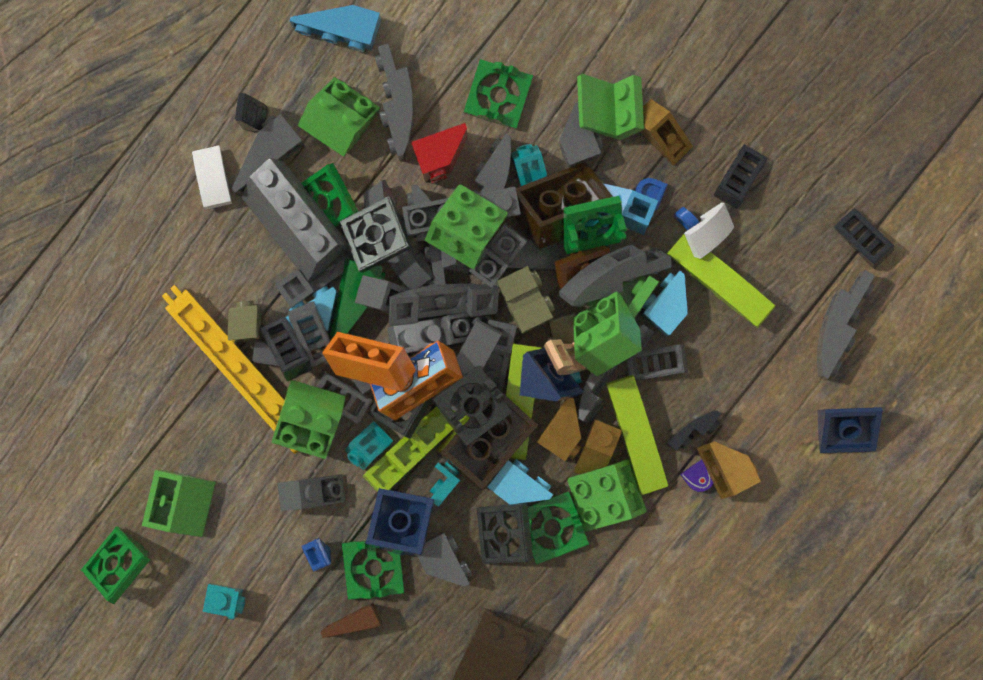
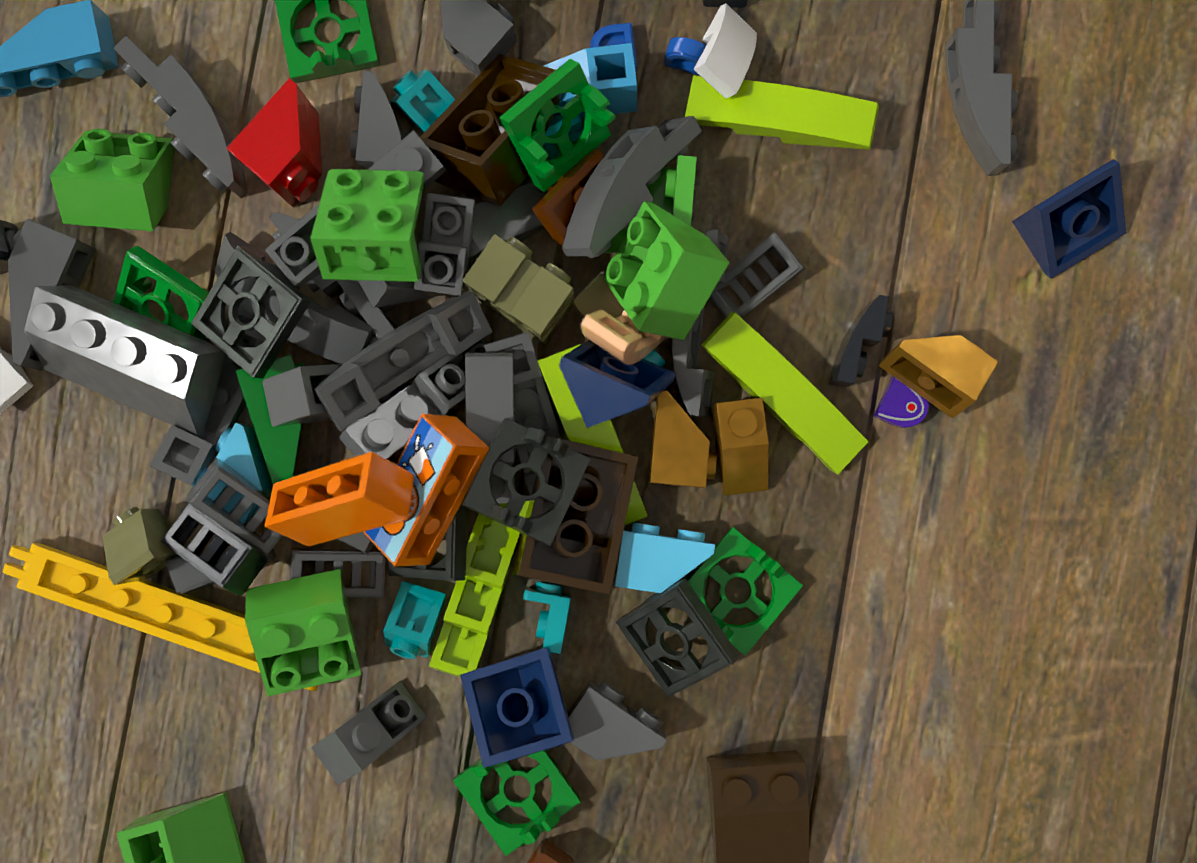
camera: 25 degrees left, 0 degrees up
(317, 554) = (427, 814): blue slope -> none
(607, 495) = (790, 503): bright green bracket -> none
(669, 306) = (730, 187): medium azure slope -> none

